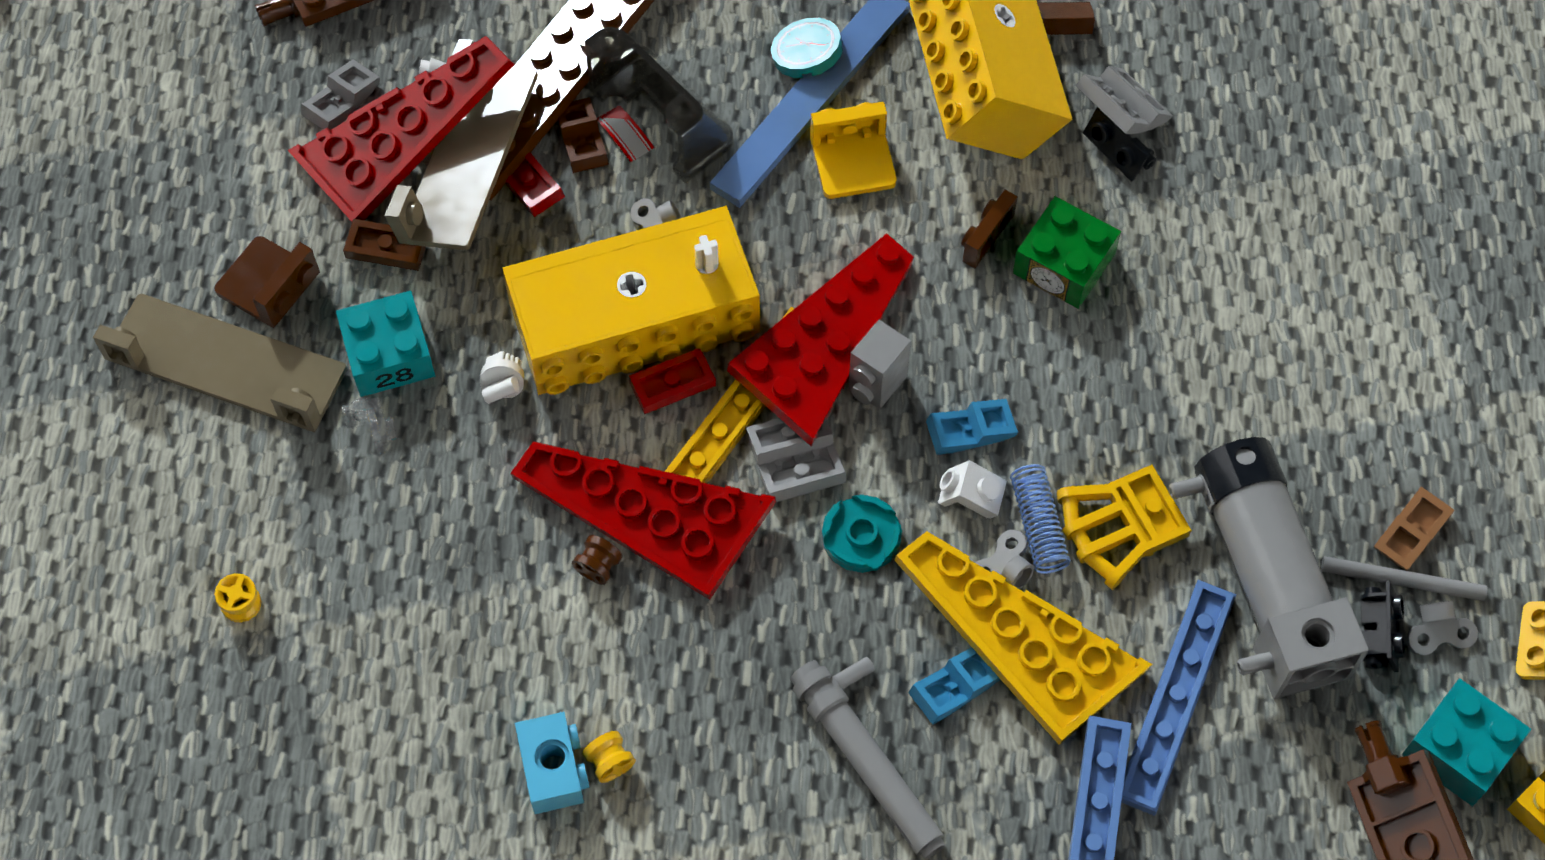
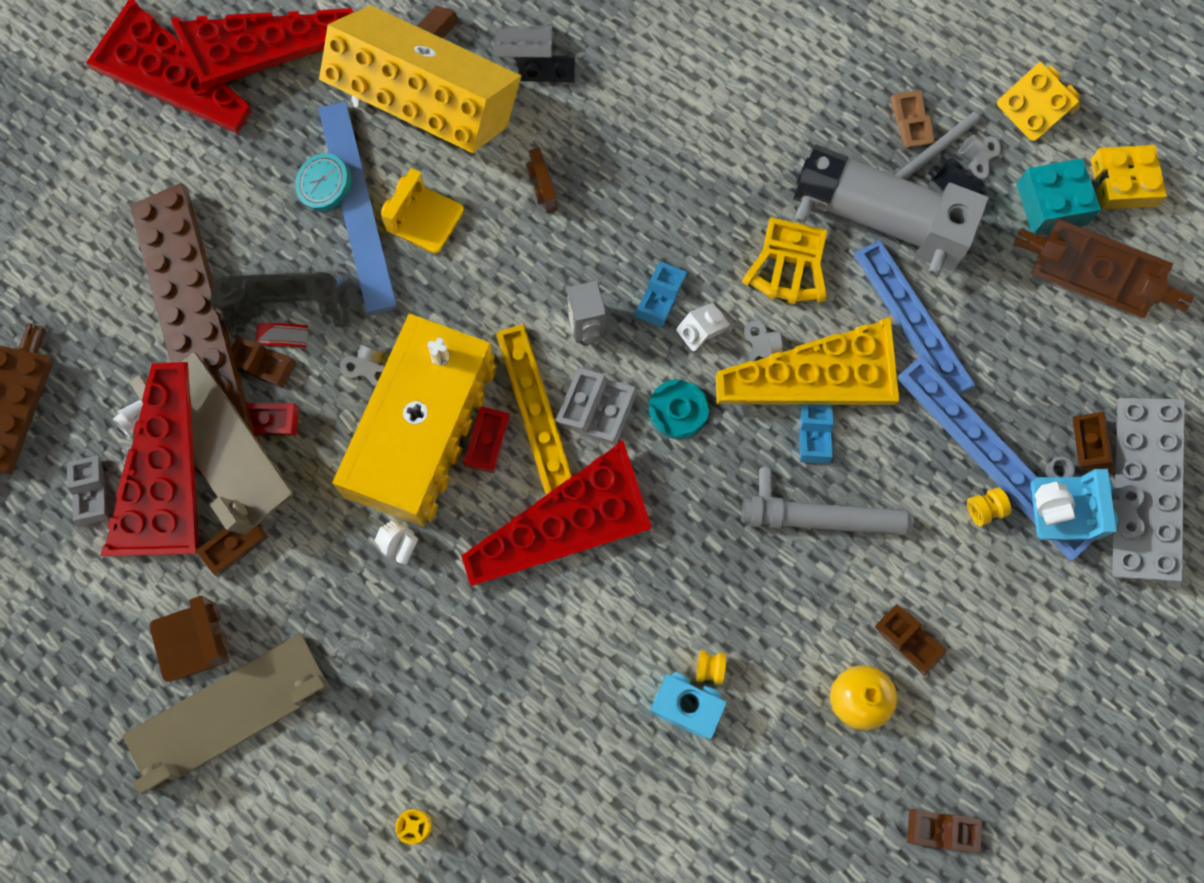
camera: 55 degrees left, 10 degrees up
(385, 343) = (309, 596): teal brick -> none
(597, 559) = (573, 576): reddish brown wheel -> none
(807, 354) = (539, 341): red wing -> none
(1052, 556) = (717, 293): light blue piece -> none
(1066, 252) = (596, 151): green brick -> none

